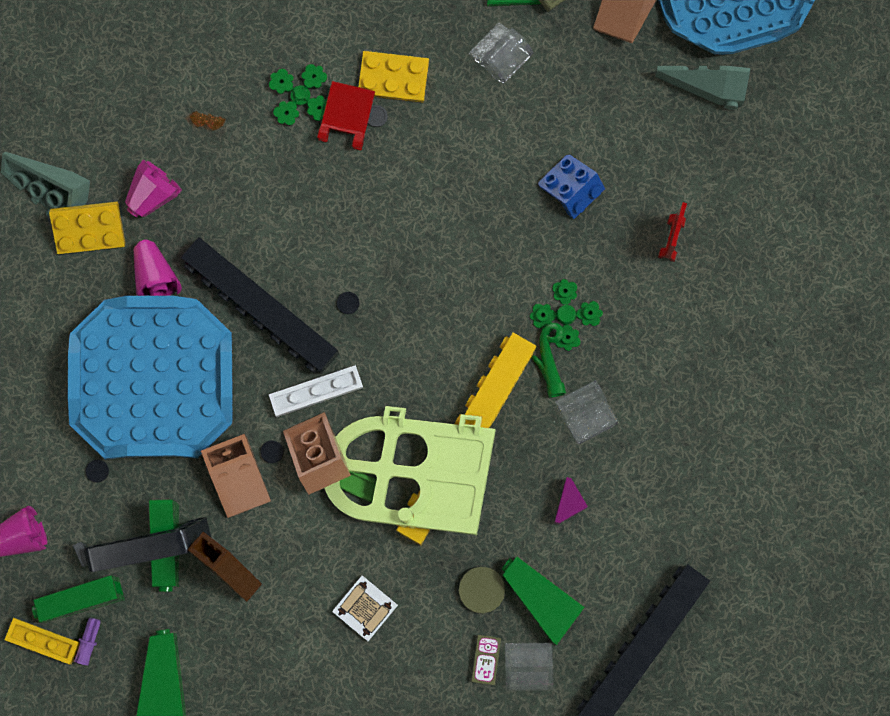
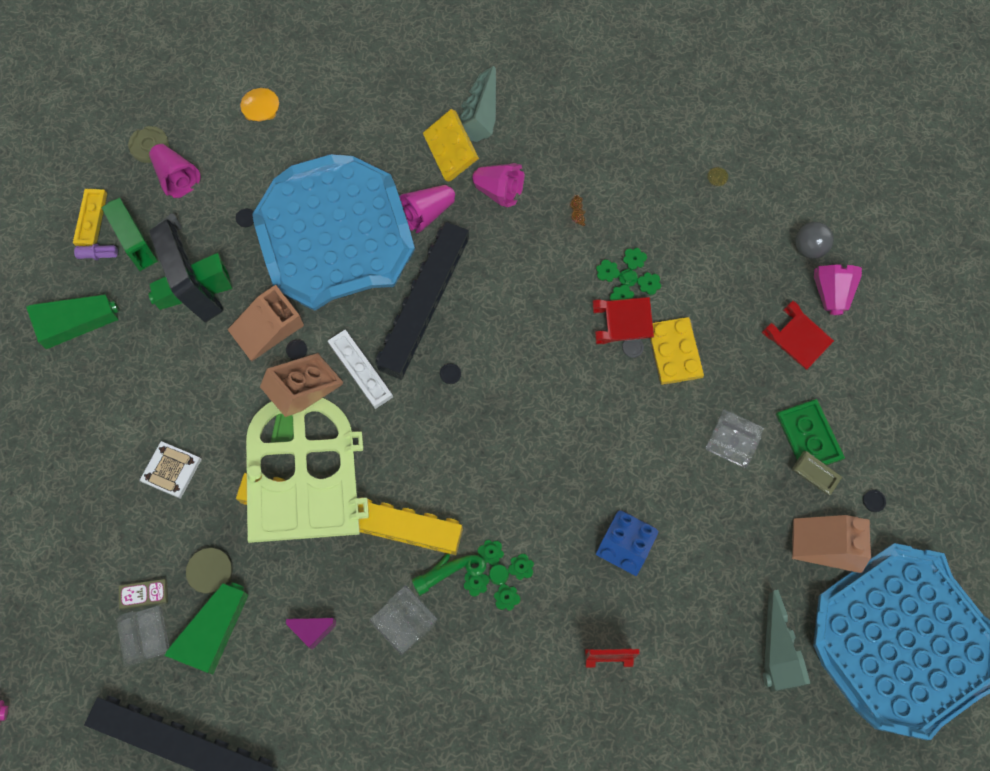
camera: 75 degrees right, 10 degrees down
(225, 566) = (170, 330): reddish brown slope -> none

